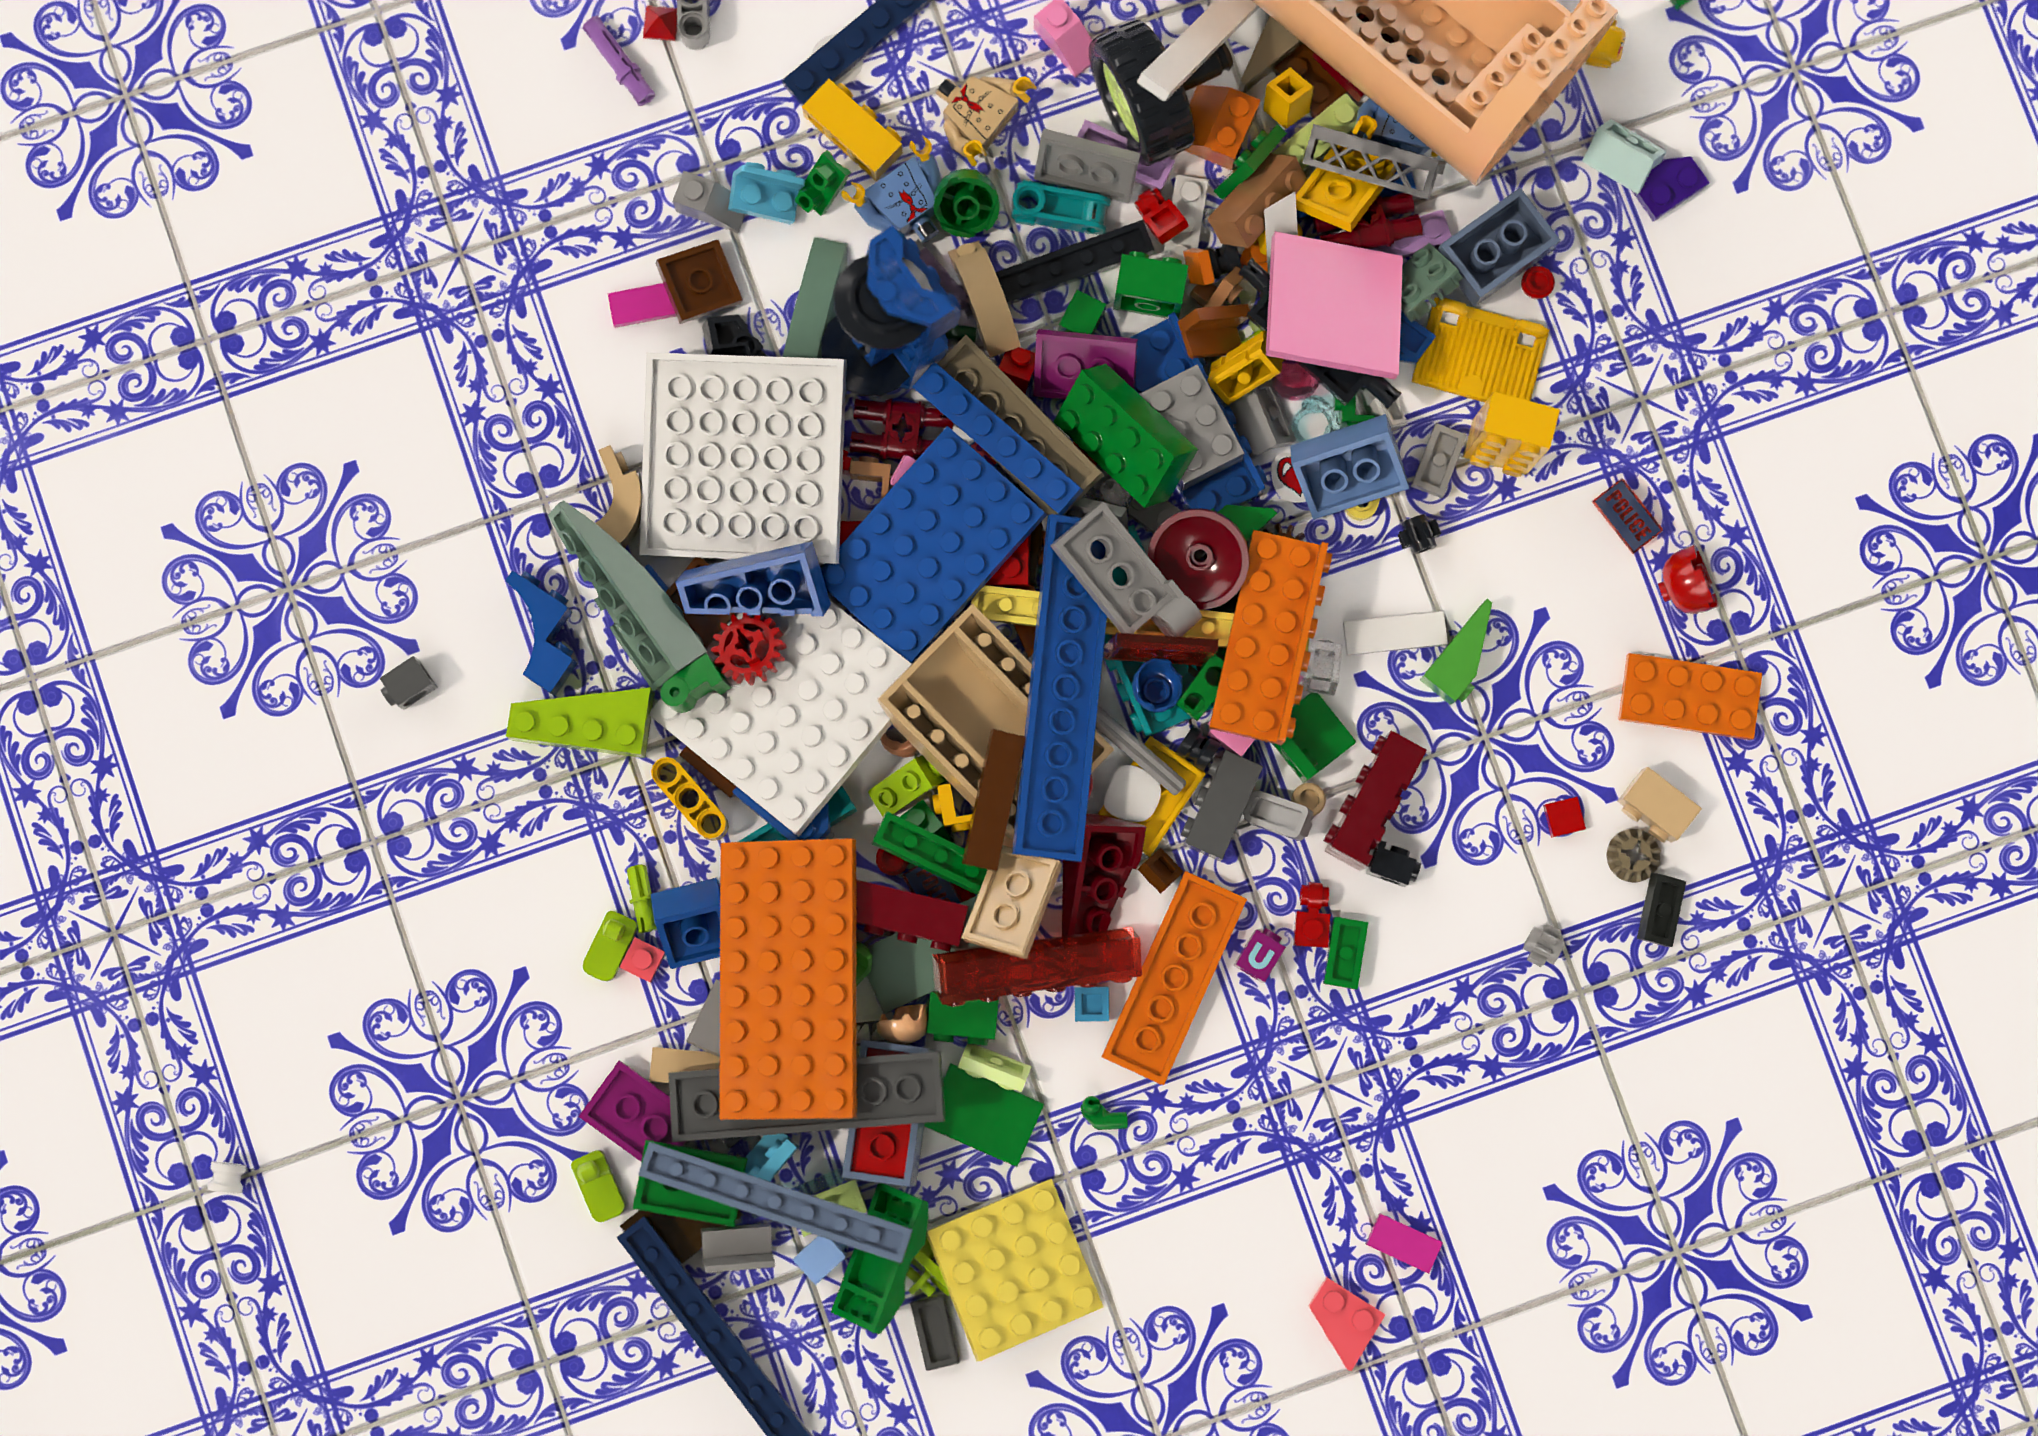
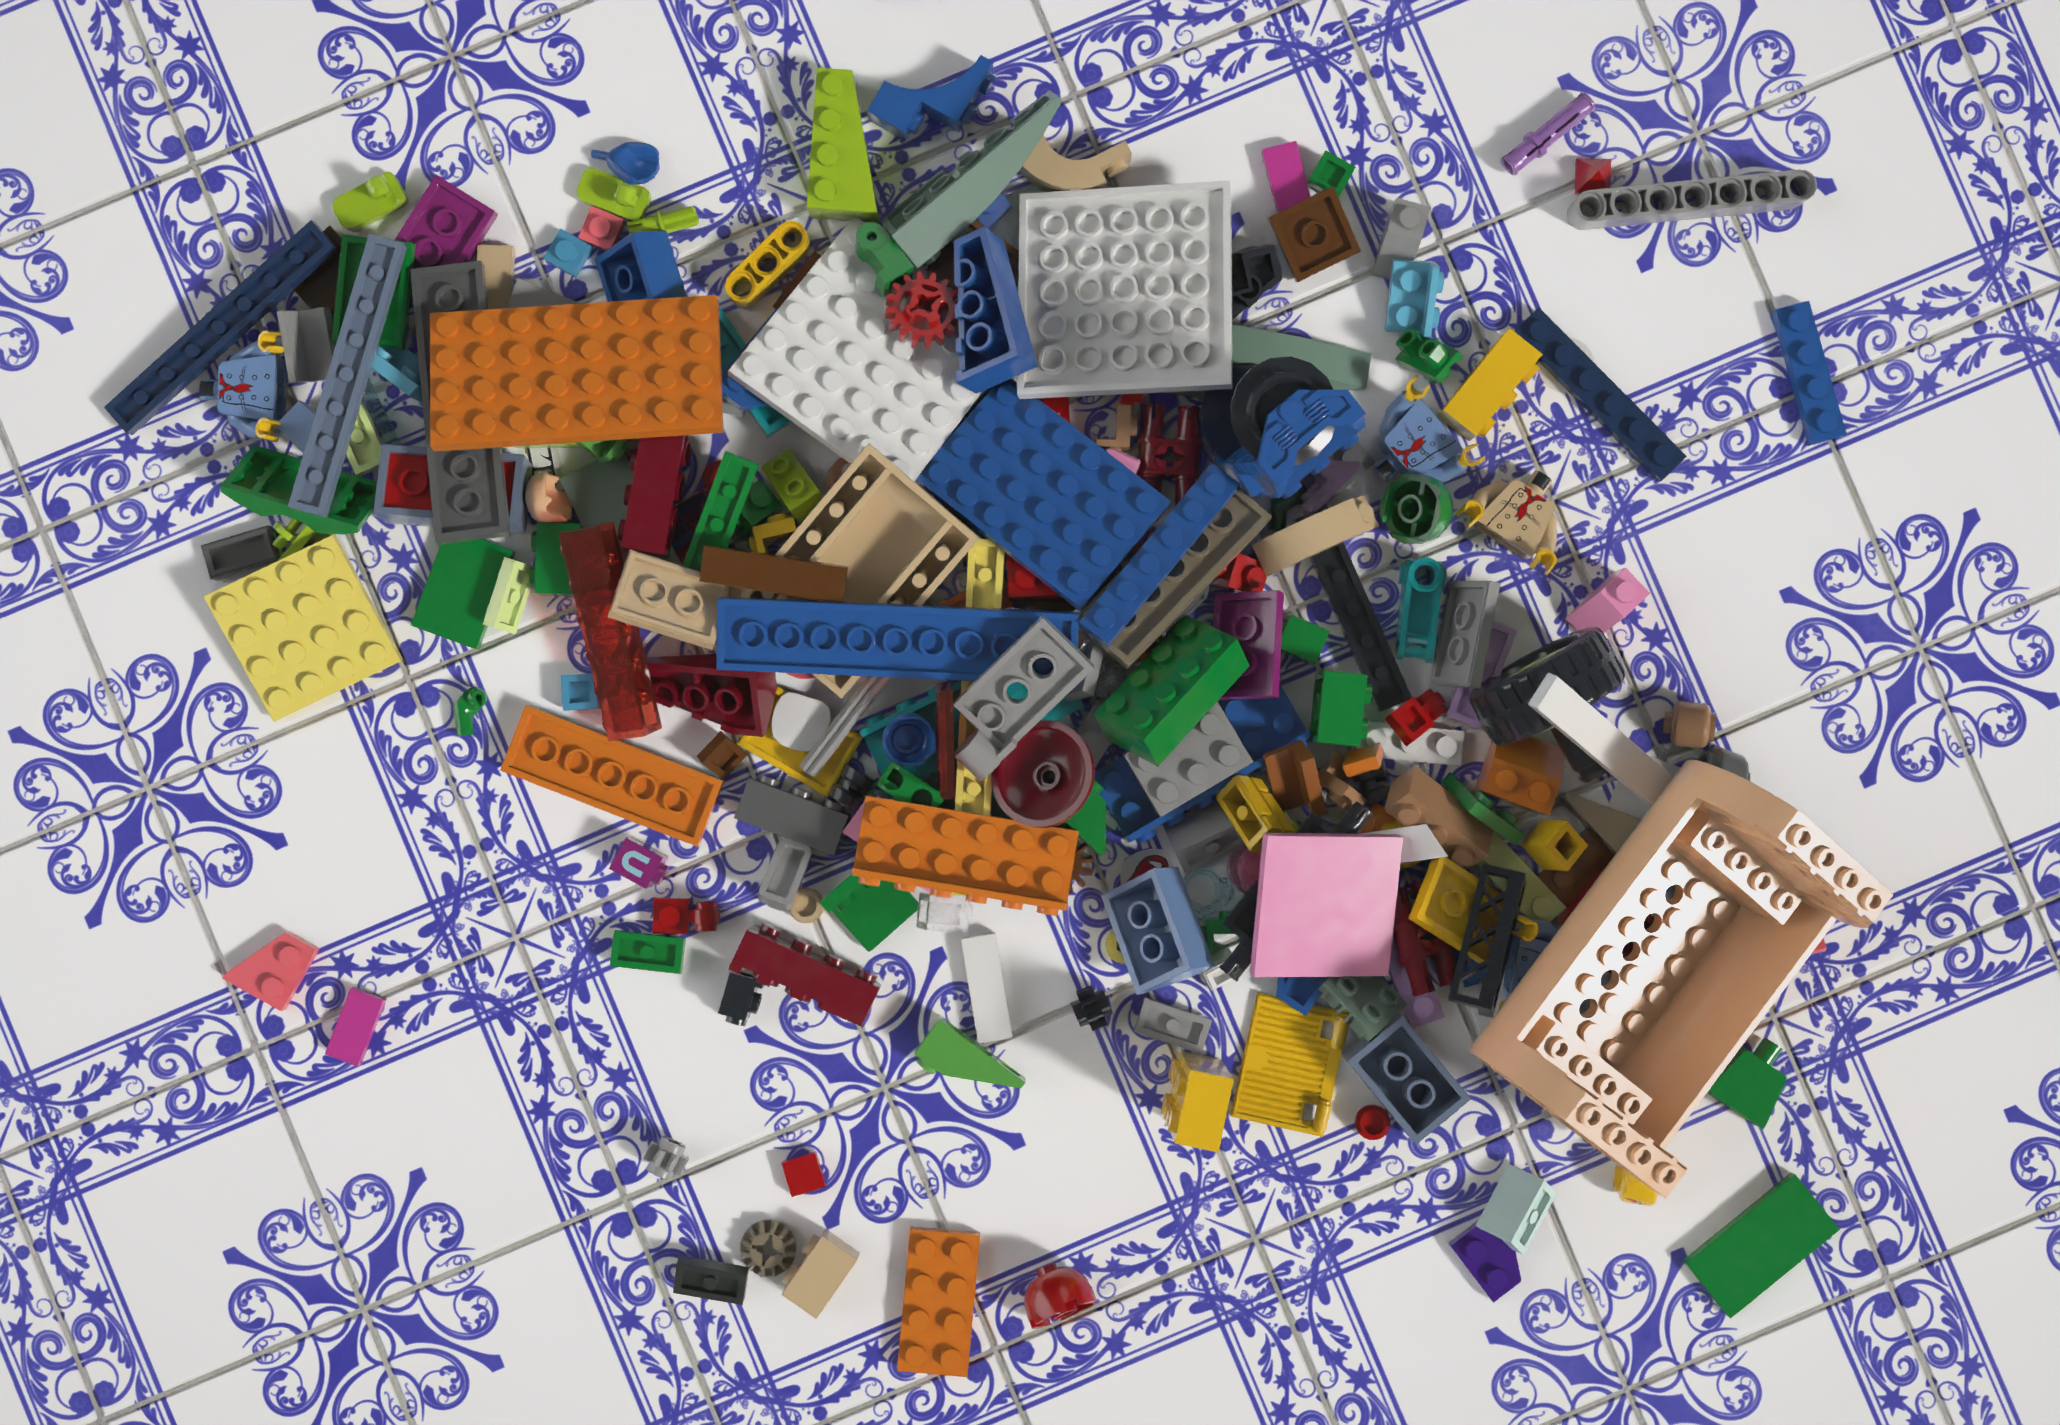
camera: 90 degrees right, 5 degrees up
(579, 926) = (631, 162): none -> blue piece
(641, 263) = (1331, 172): none -> green plate
(663, 994) = (568, 253): none -> dark azure plate
(776, 1310) = (251, 388): none -> medium blue torso
(1627, 516) = (1126, 1227): slope -> none

